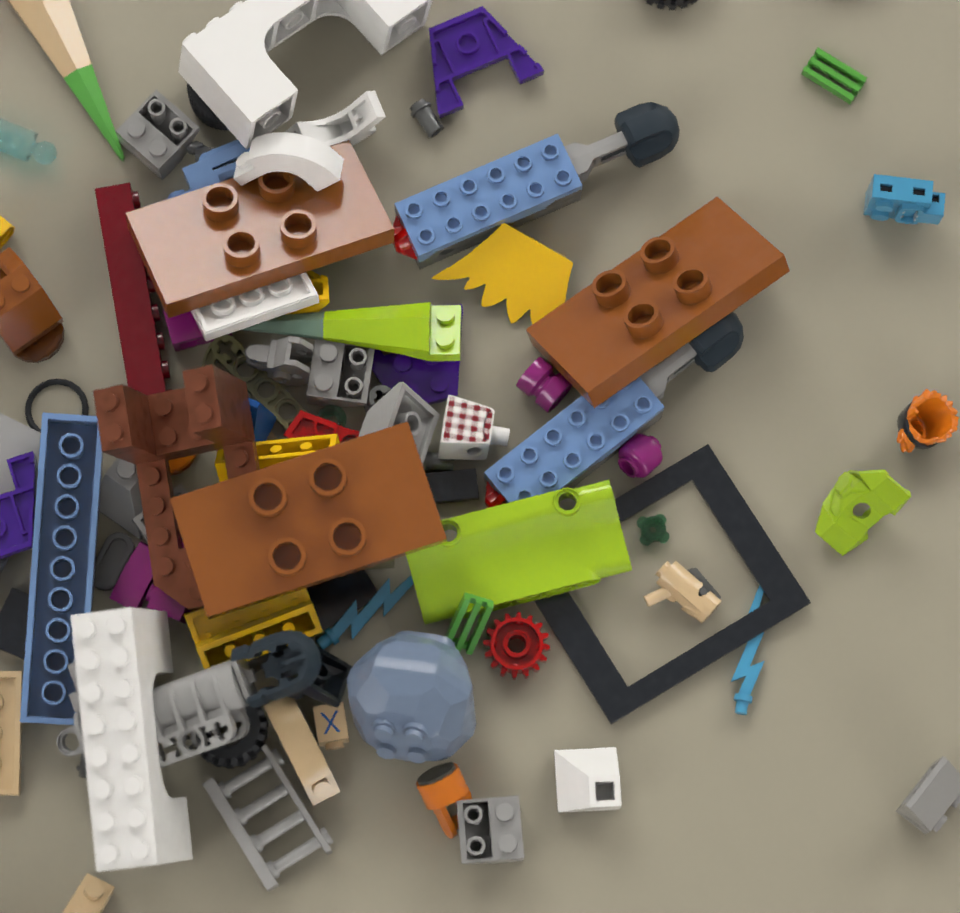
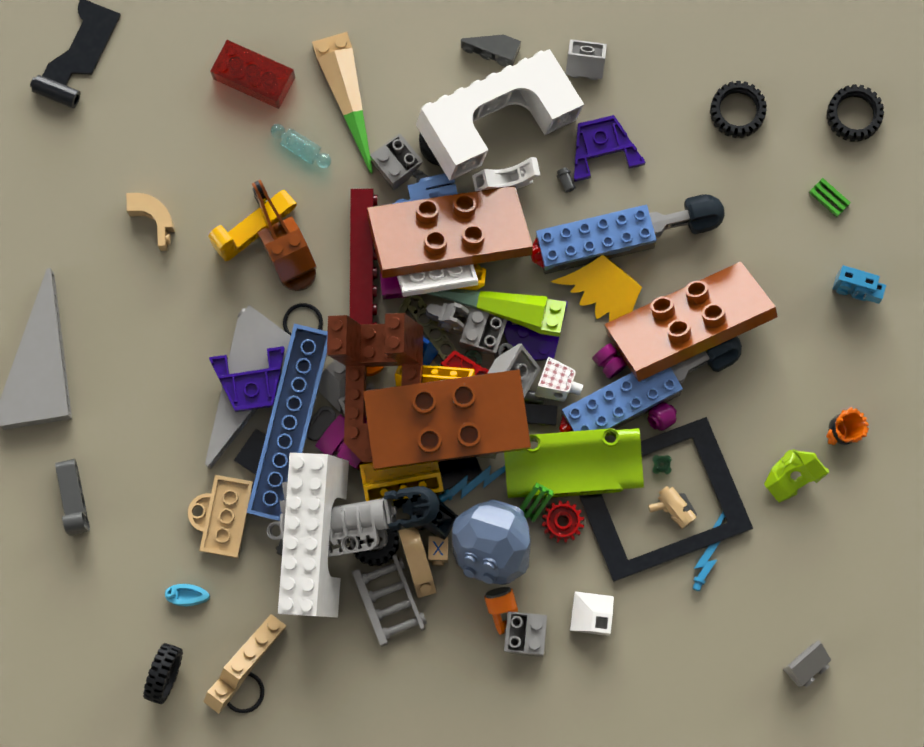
camera: 15 degrees right, 0 degrees up
(291, 154) = (476, 188): white arch -> none

